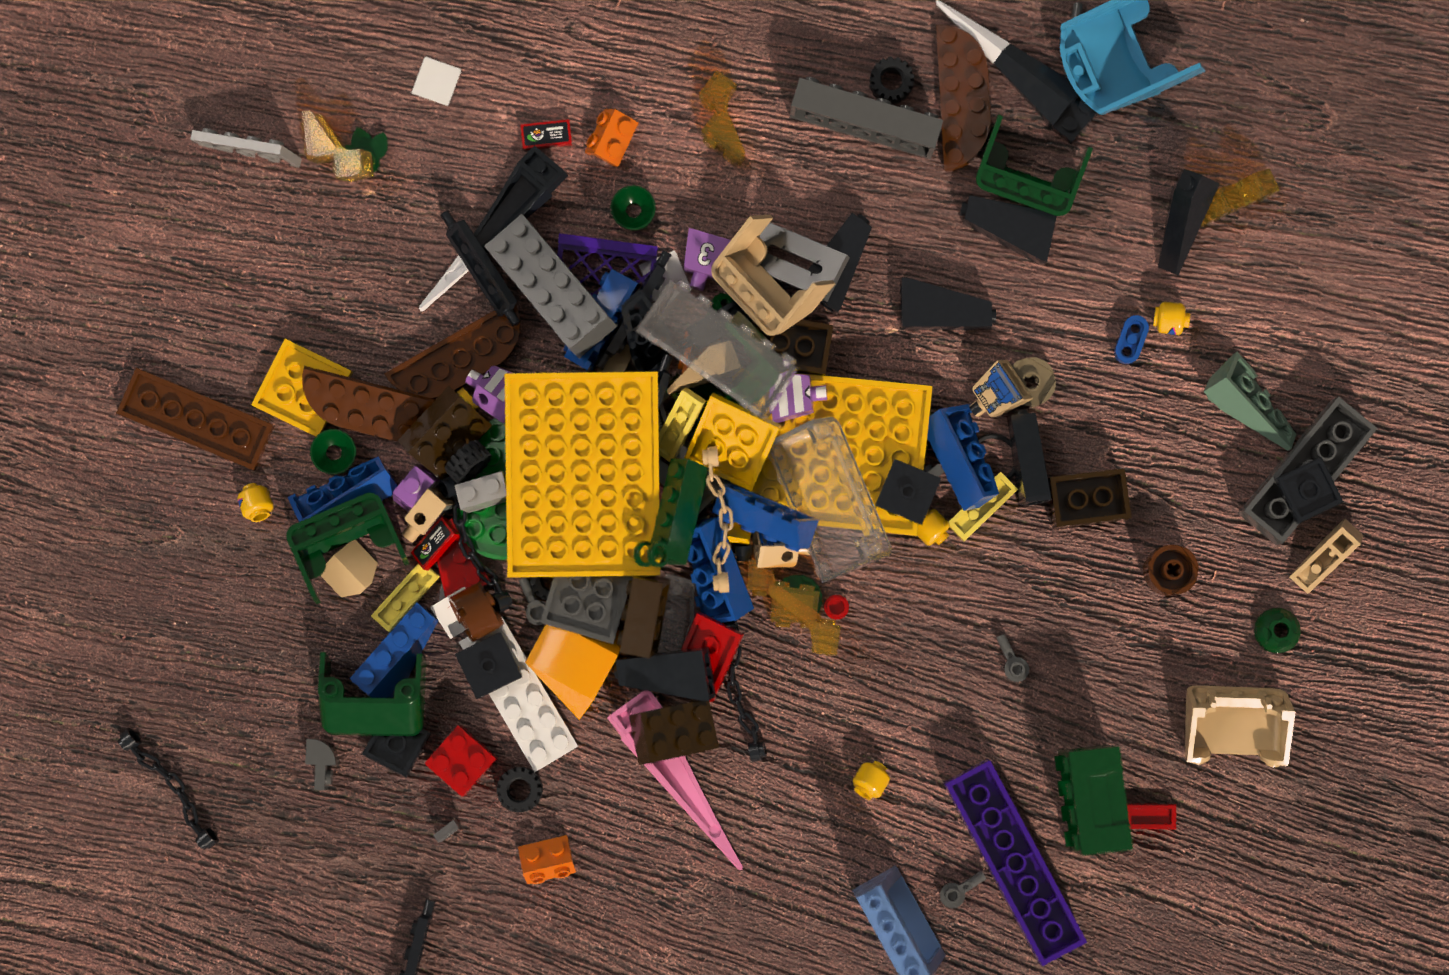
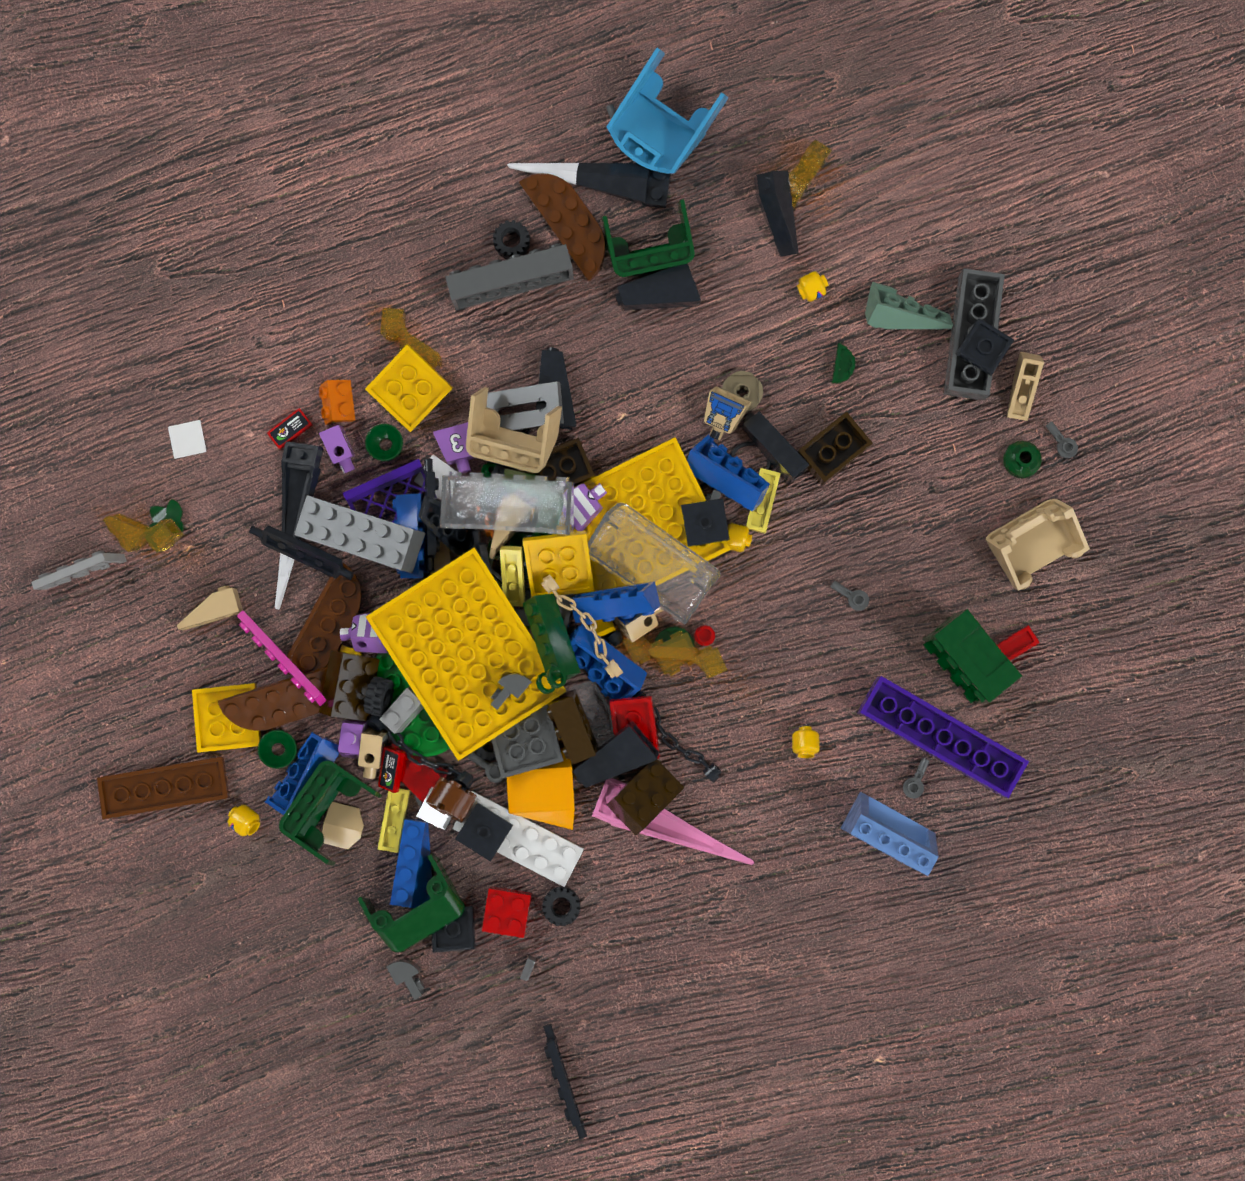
camera: 30 degrees left, 0 degrees up
(205, 837) = (358, 1081): black piece -> none
(360, 270) = (215, 607): none -> tan slope
(394, 371) = (285, 665): none -> dark pink plate
(546, 860) = (611, 944): orange bracket -> none
(583, 173) = (333, 439): none -> medium lavender torso
(609, 533) = (512, 684): none -> dark grey brick
(692, 168) = (409, 388): none -> yellow plate
(938, 308) = (645, 380): black slope -> none
(1131, 340) = (794, 319): blue plate -> none
(1152, 419) = (843, 365): none -> dark green plate
(1184, 575) = (934, 461): reddish brown brick -> none
(1330, 645) = (1066, 446): none -> dark grey plate

